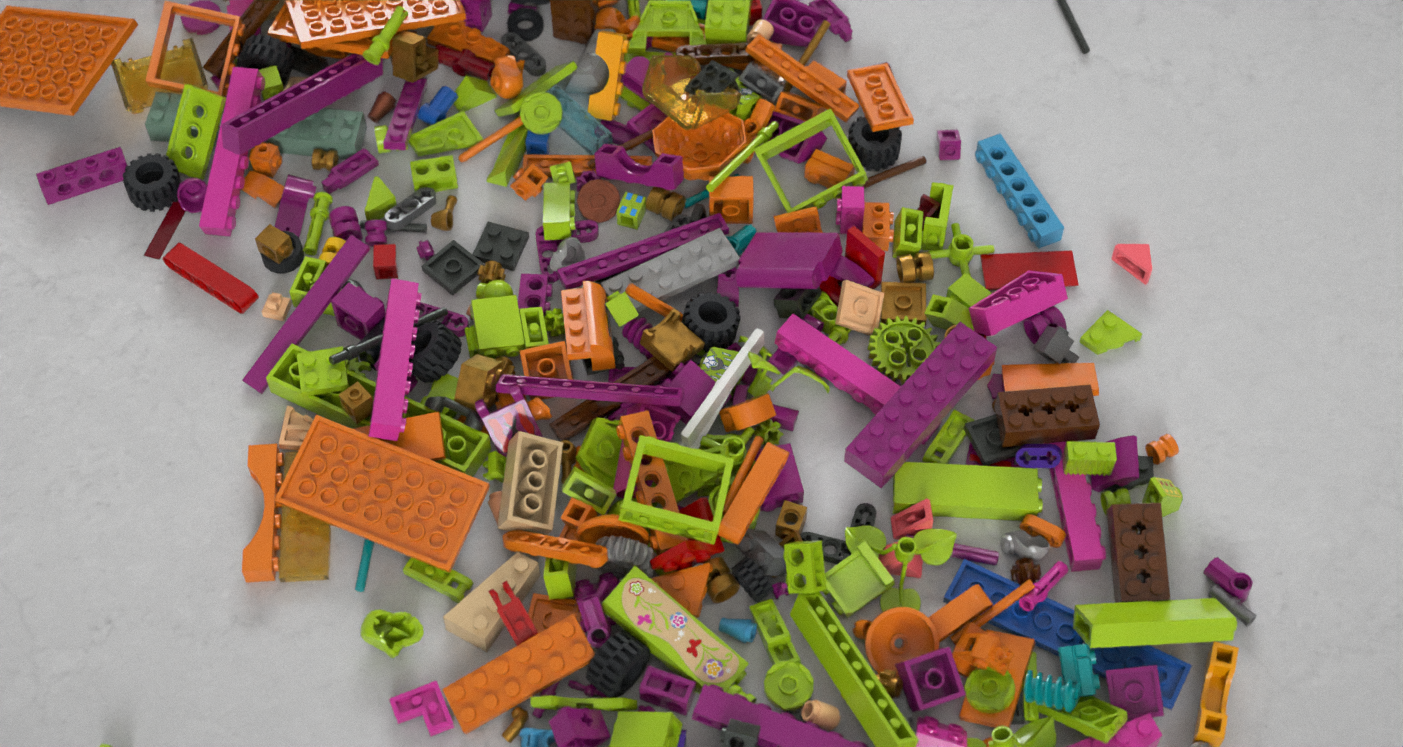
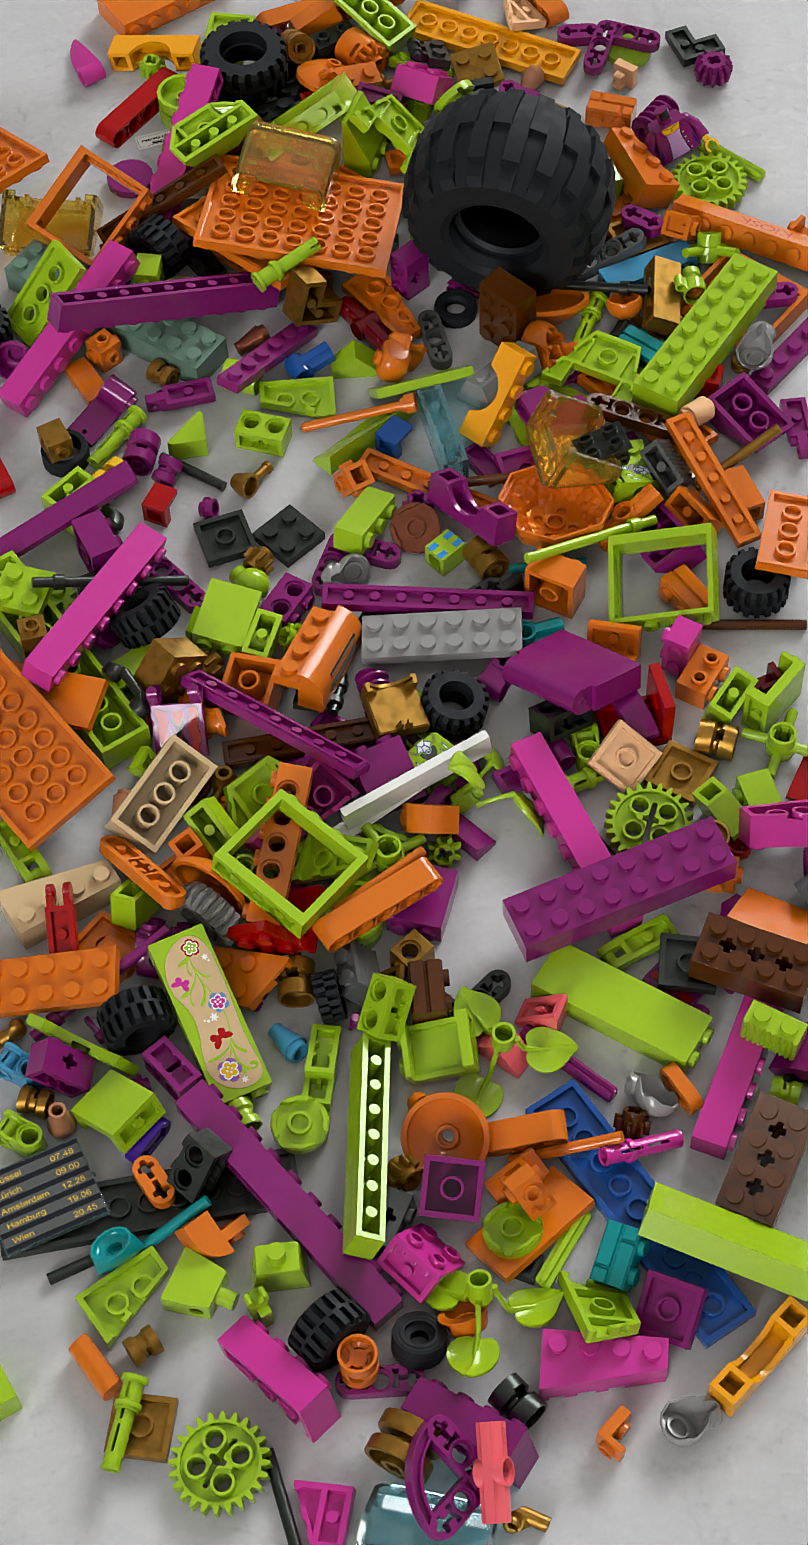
camera: 30 degrees right, 0 degrees up
(276, 307) = (26, 507): light nougat tile -> none
(398, 215) = (196, 465): dark grey beam -> none
(541, 113) = (405, 408): lime tile -> none
(563, 173) = (395, 483): lime tile -> none
(594, 618) = (133, 961): magenta piece -> none
(621, 308) = (361, 650): lime brick -> none
(649, 300) = (399, 656): orange axle -> none
(821, 714) = (316, 1171): light nougat brick -> none
(834, 548) = (429, 997): none -> reddish brown brick
(1038, 457) = (721, 998): dark purple beam -> none
(1051, 693) = (572, 1262): teal piece -> none

